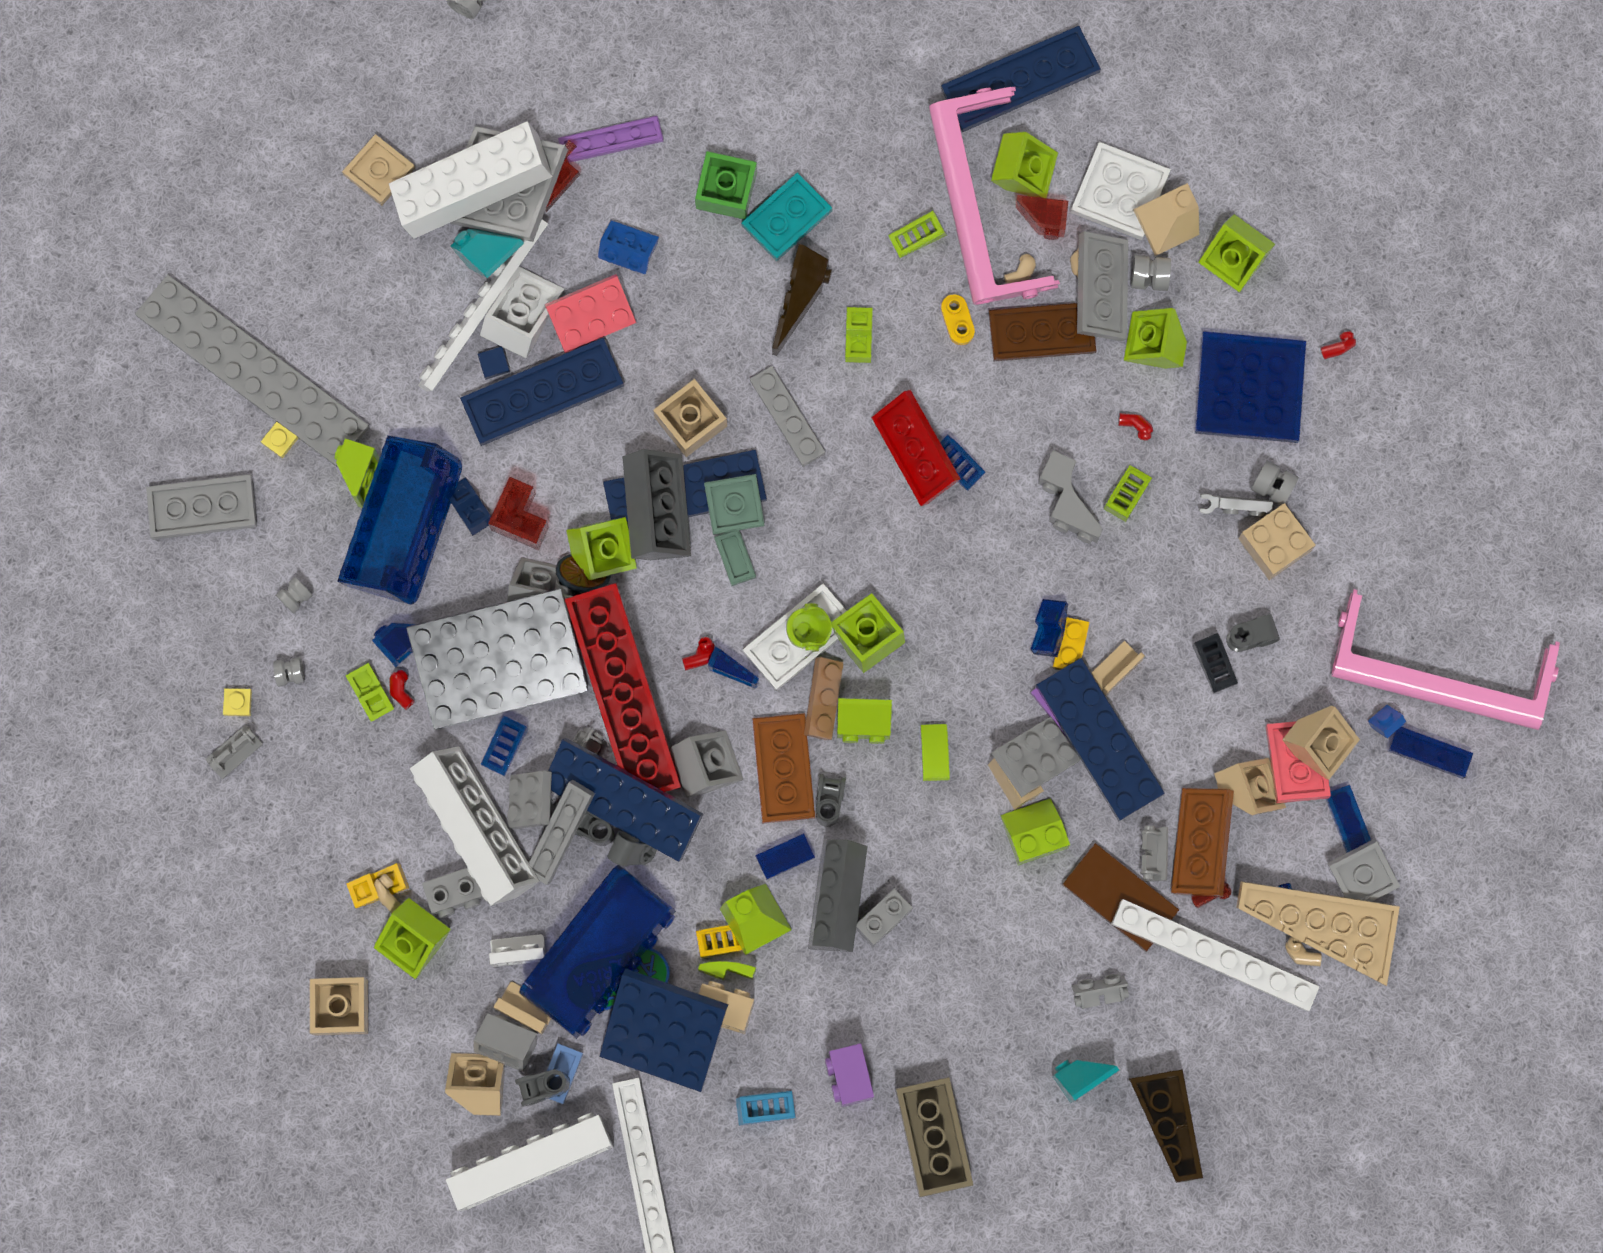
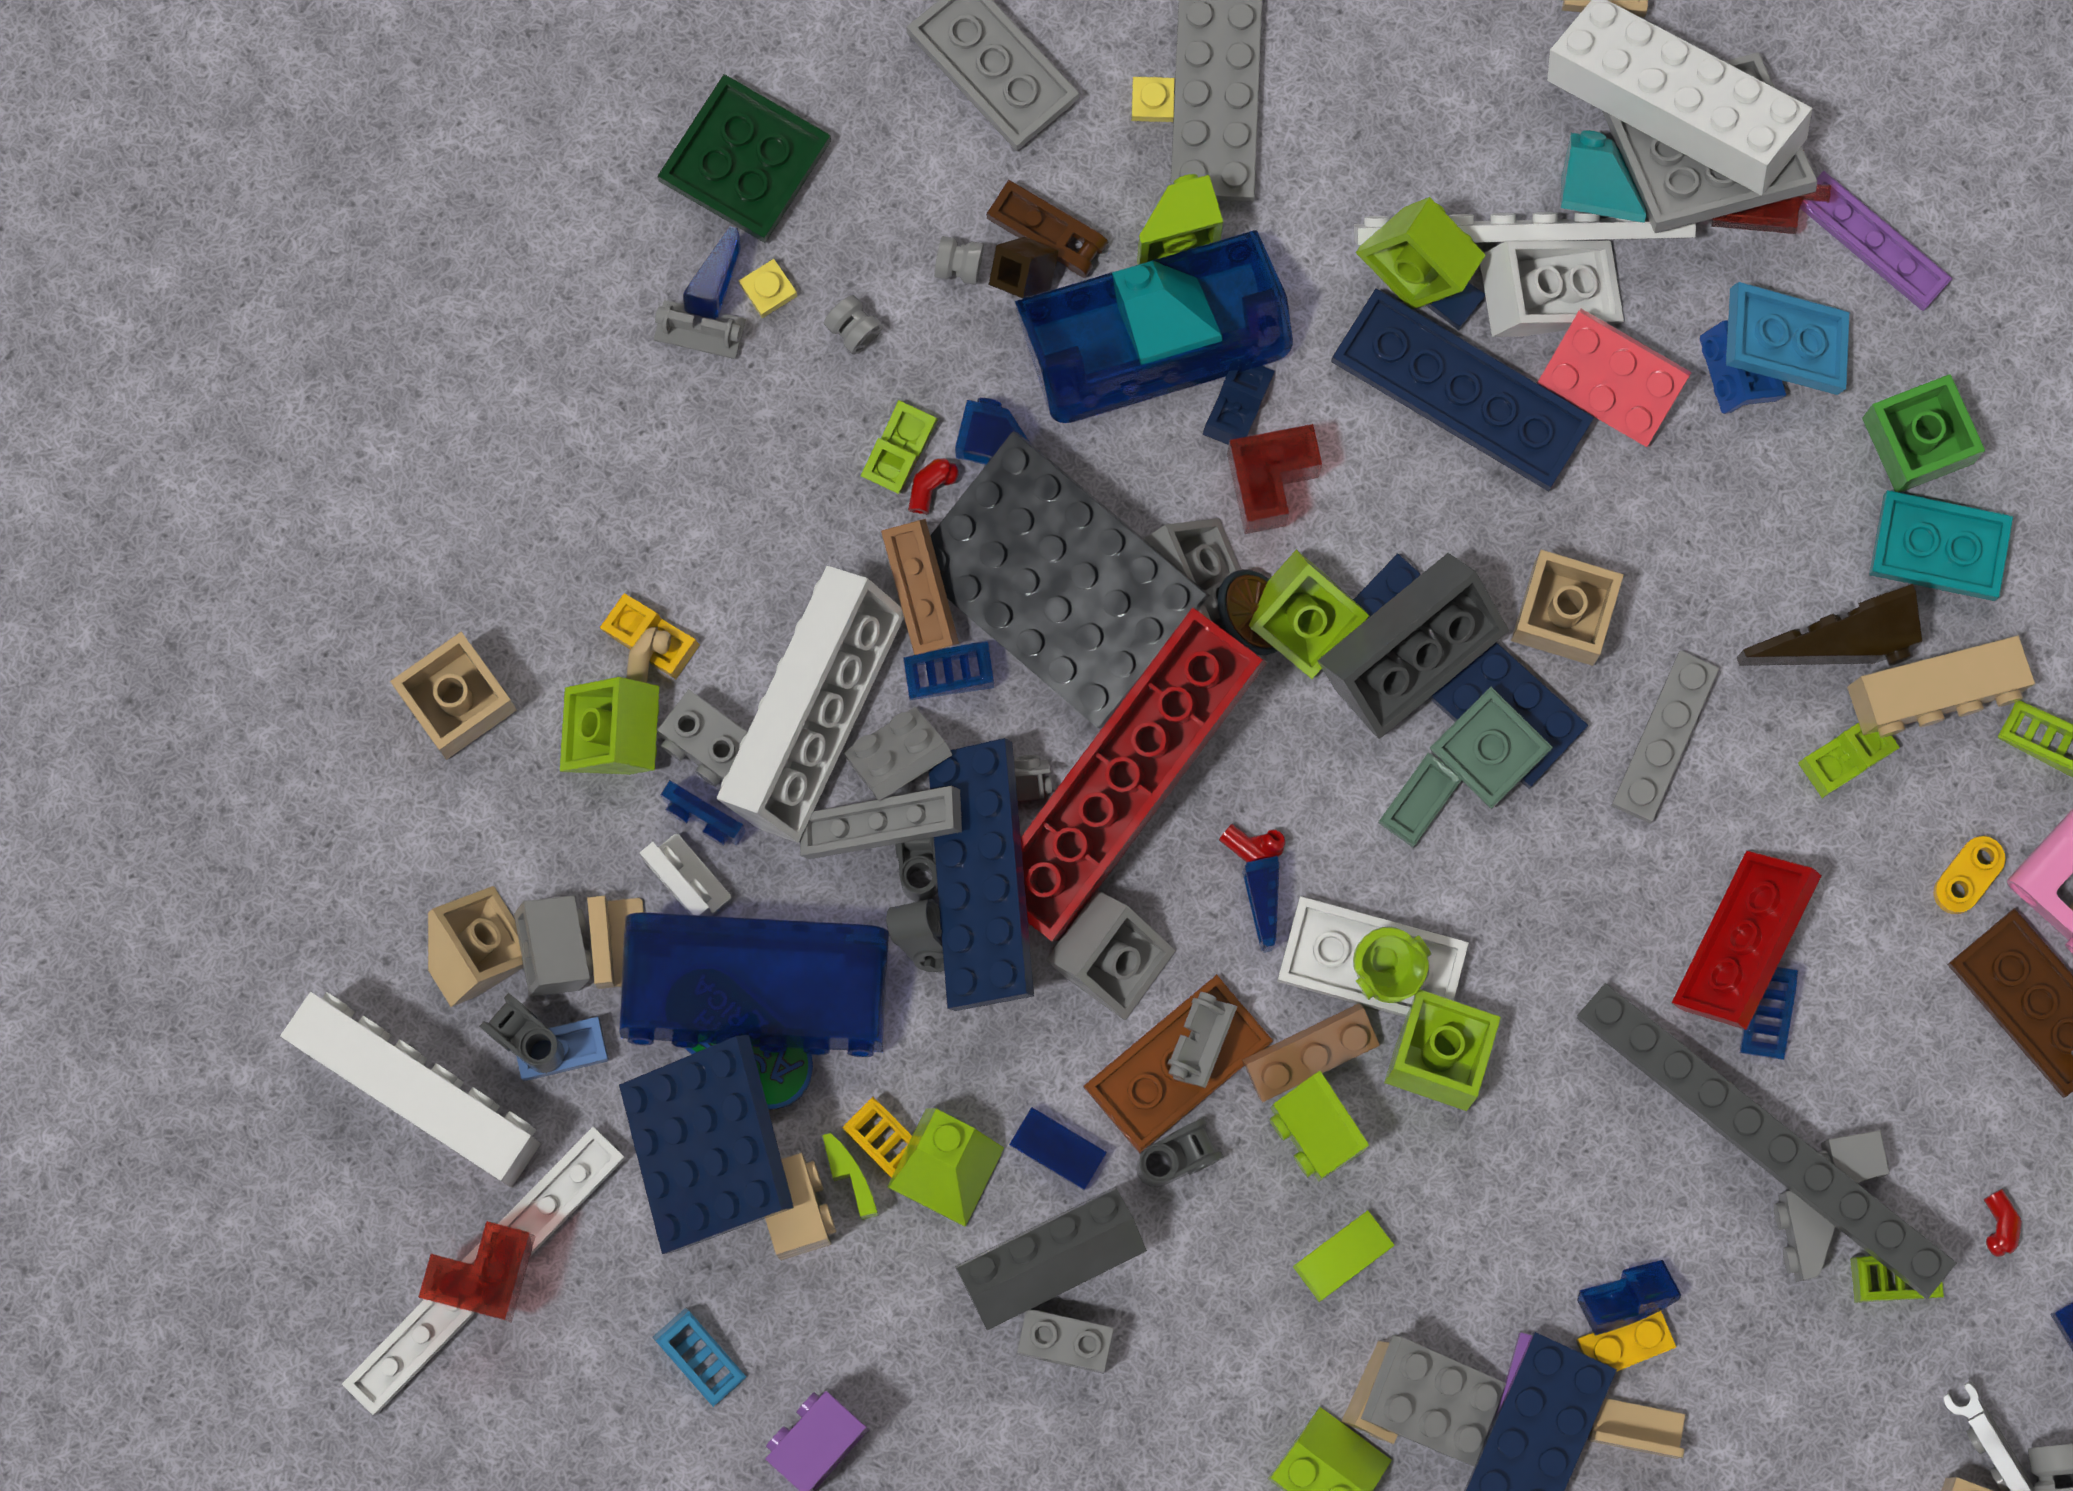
camera: 55 degrees right, 0 degrees up
(159, 667) = (744, 158): none -> dark green plate
(215, 730) = (710, 284): none -> clear blue slope
(308, 539) = (1036, 219): none -> reddish brown plate
(322, 565) = (1023, 267): none -> dark brown brick
(396, 510) = (1163, 311): none -> teal slope
(451, 730) = (920, 586): none -> medium nougat plate
(461, 362) = (1422, 254): none -> lime slope
(500, 916) = (685, 805): none -> clear blue plate
(631, 215) = (1787, 338): none -> dark azure plate
(658, 1188) = (489, 1285): none -> clear red brick
(784, 749) = (1197, 1055): none -> light grey hinge
(856, 267) = (1941, 686): none -> tan brick
(1019, 508) = (1767, 1141): none -> dark grey plate

